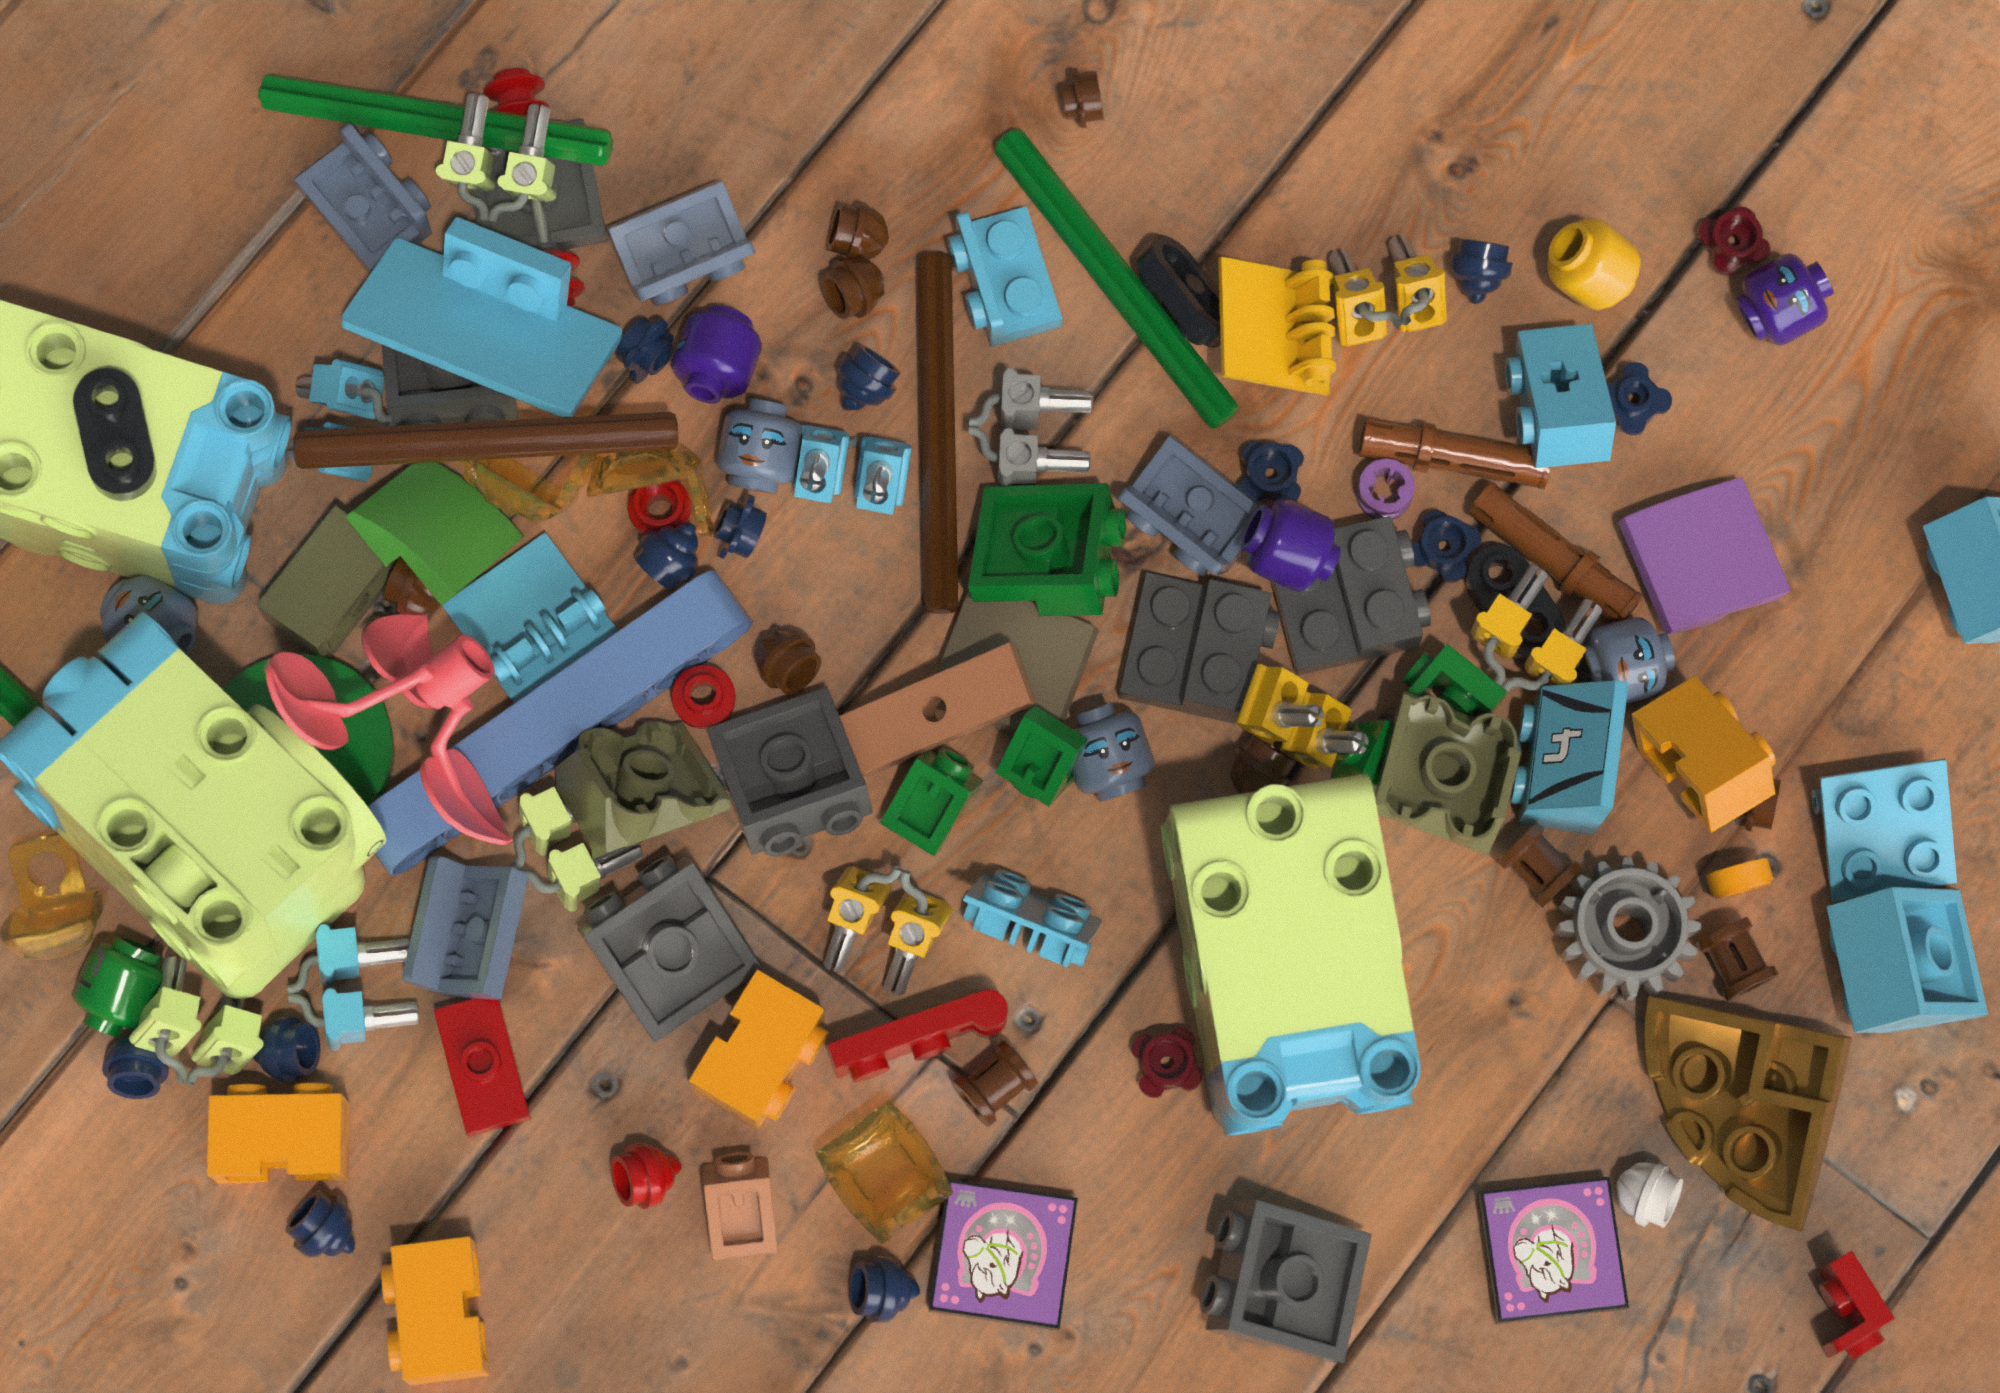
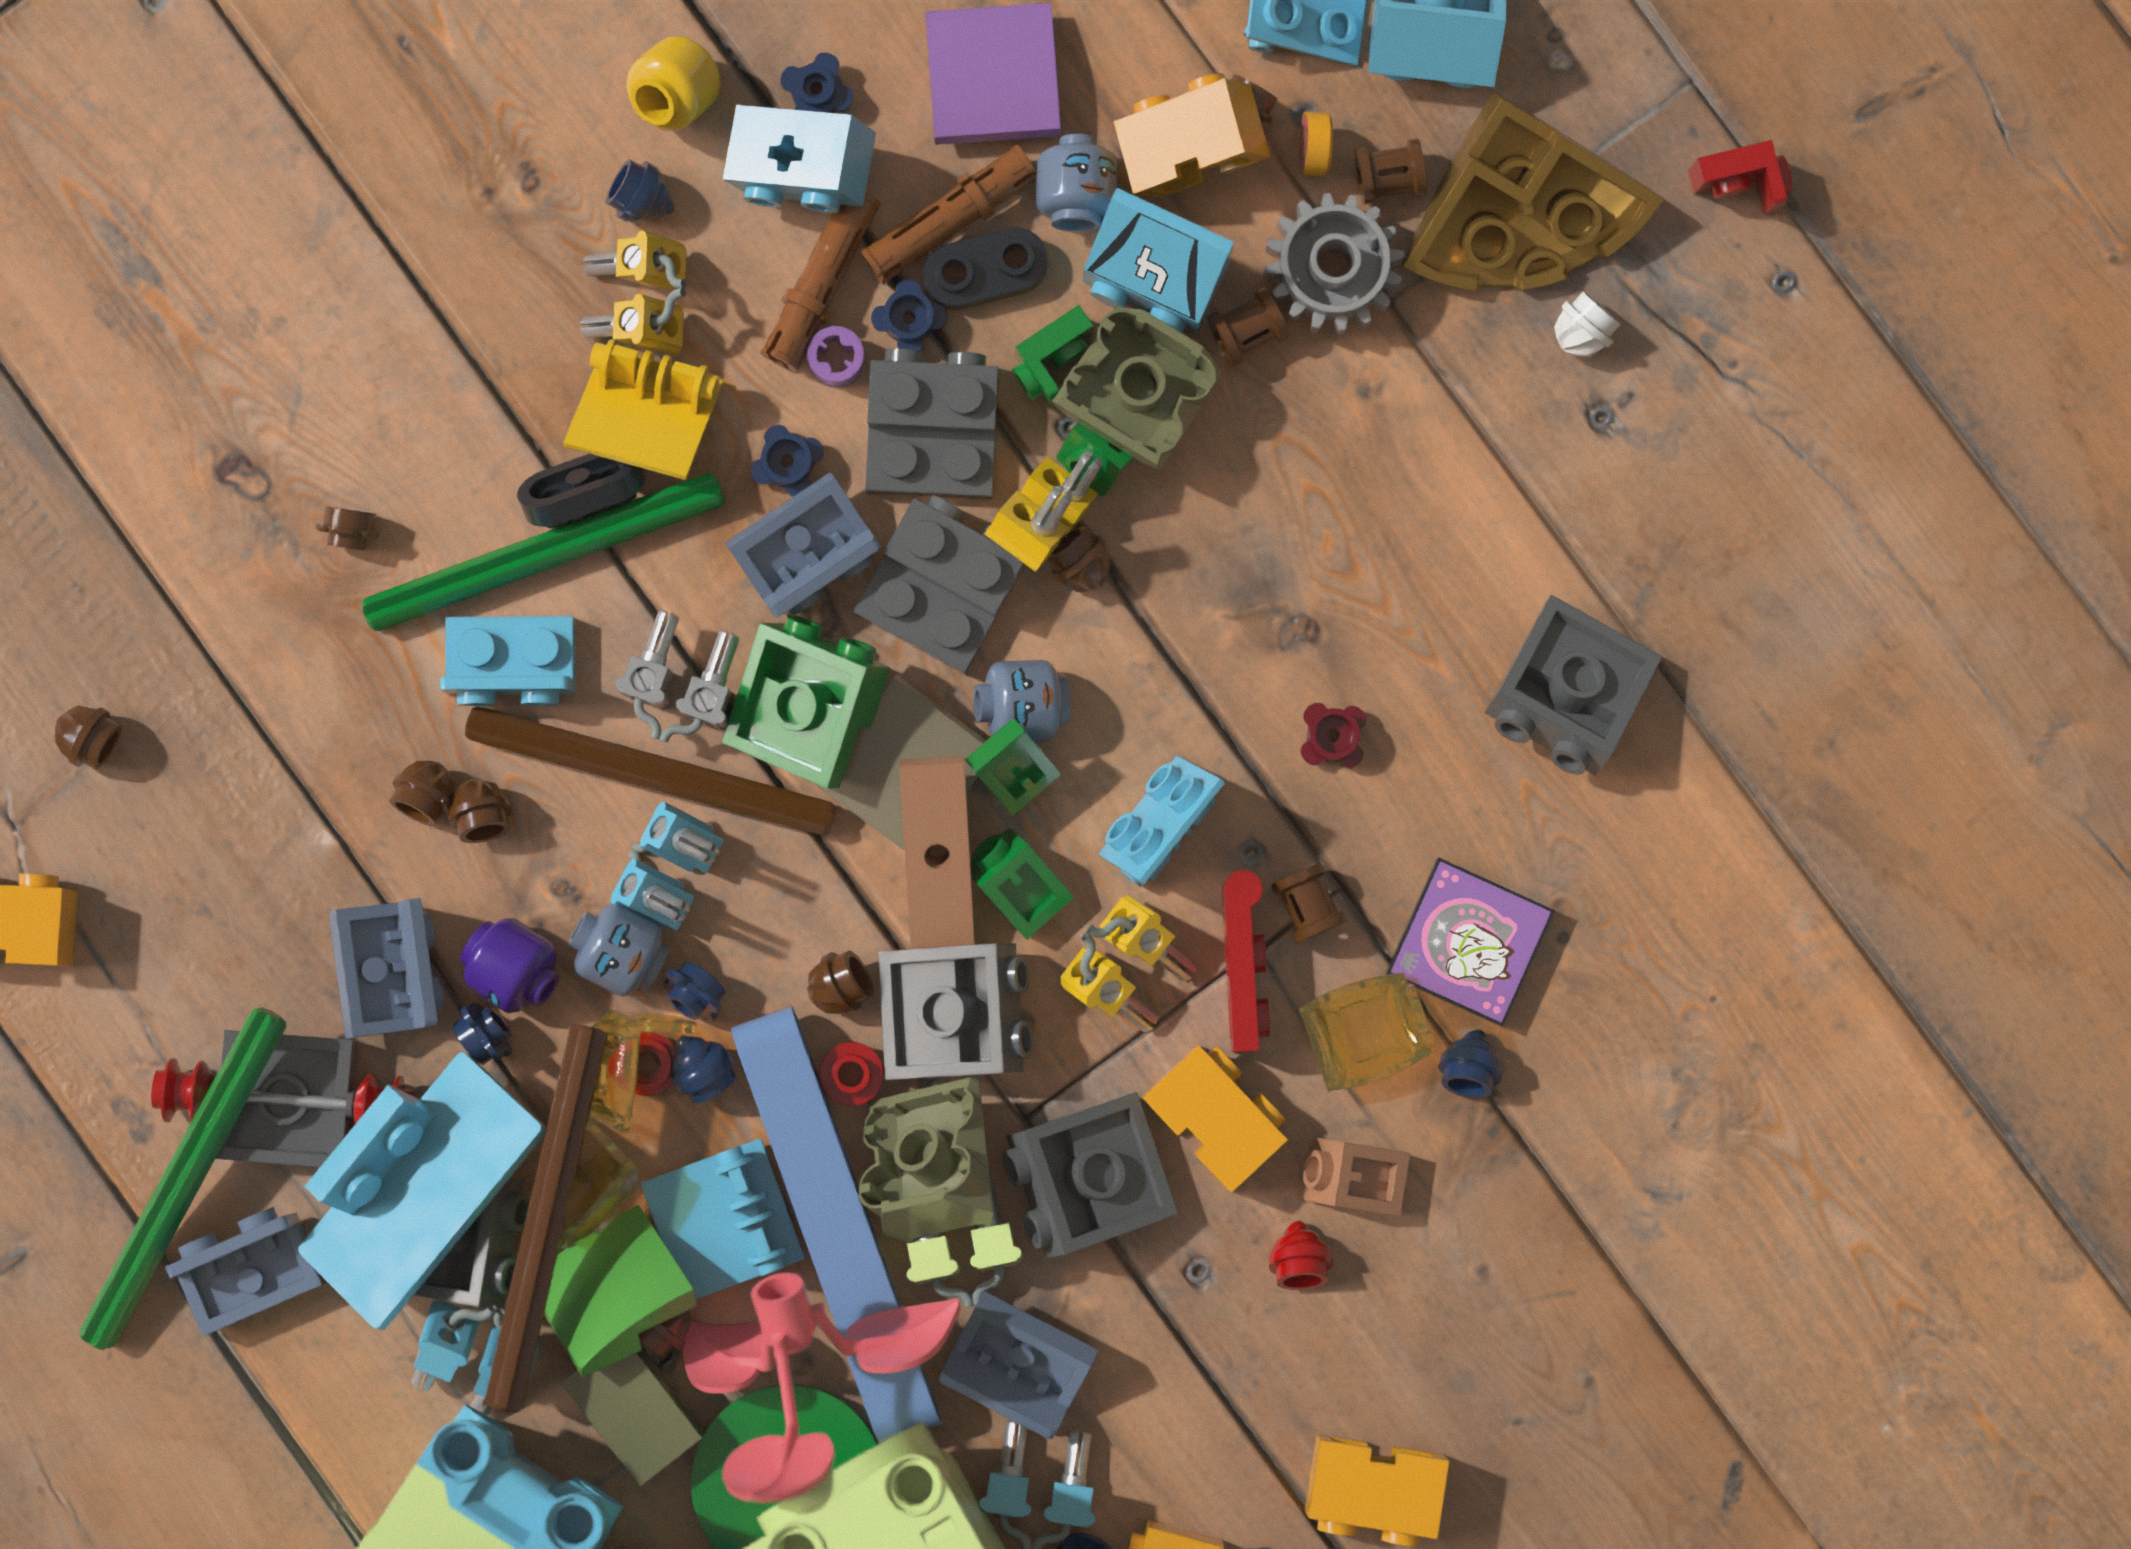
camera: 70 degrees left, 10 degrees up
(471, 165) = (247, 1157): piece -> none
(482, 1065) = (1150, 1384): red plate -> none
(865, 379) = (576, 825): dark blue plate -> none
(1290, 544) = (876, 465): dark purple head -> none
(1292, 951) = (1283, 587): yellowish green piece -> none
(1502, 630) = (1059, 246): yellow piece -> none
(1552, 1250) = (1610, 431): tile -> none

